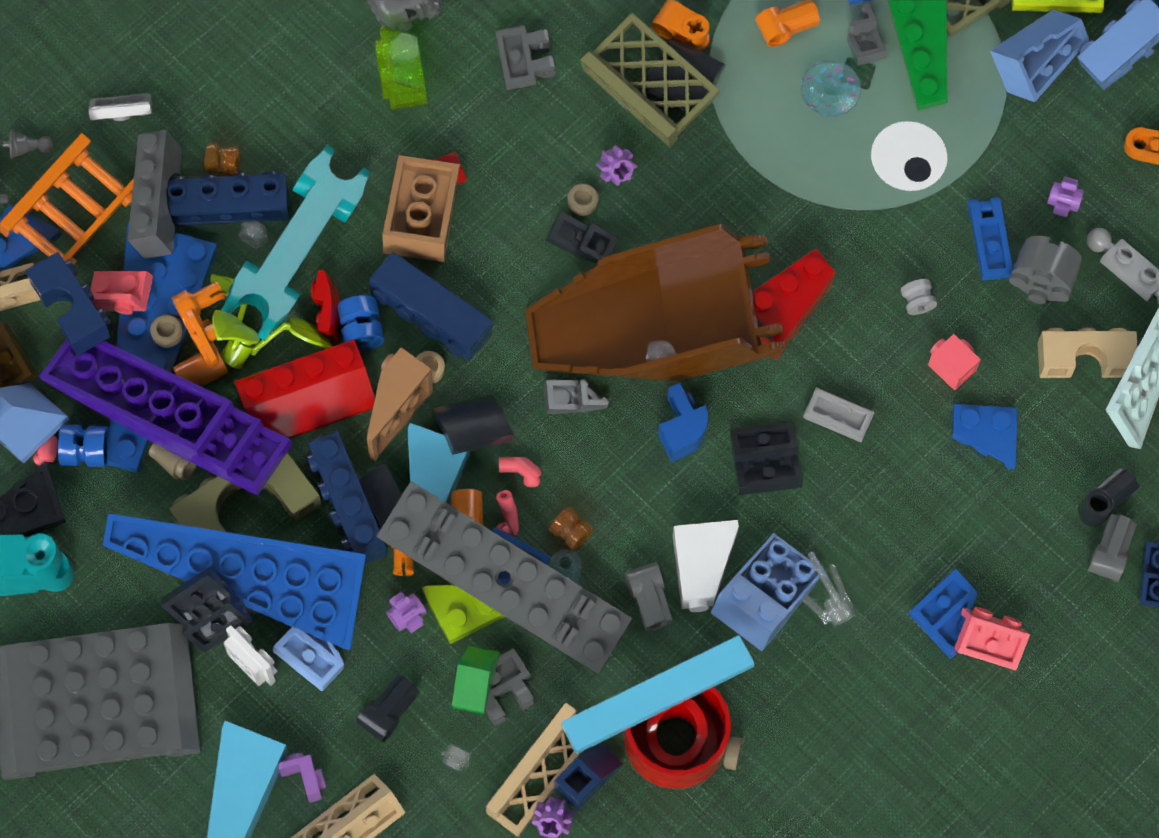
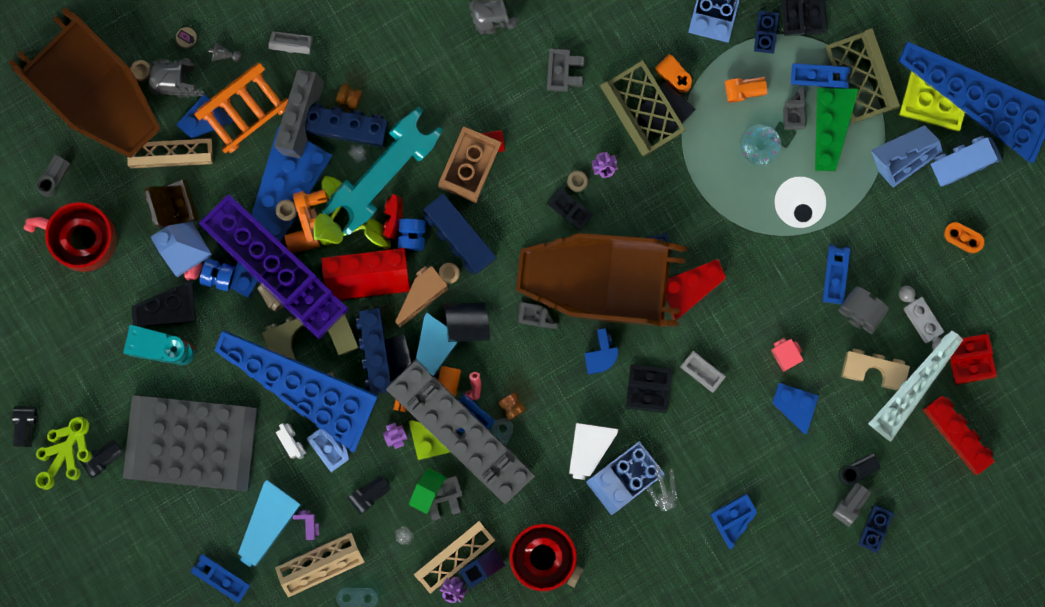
camera: 15 degrees right, 15 degrees up
(56, 281) = (222, 162): dark blue arch -> none
(121, 290) = (262, 174): coral bracket -> none
(206, 609) = (270, 405): black slope -> none
(400, 69) = (481, 62): clear neon green slope -> none
(522, 466) = (493, 357): coral arm -> none
(647, 588) = (549, 456): dark grey piece -> none
(657, 694) = (535, 537): medium azure tile -> none
(659, 350) = (596, 307): clear plate -> none
(918, 296) = (777, 304): light grey wheel -> none
(992, 638) = (757, 544): coral bracket -> none
(1065, 196) = (893, 259): medium lavender gear -> none

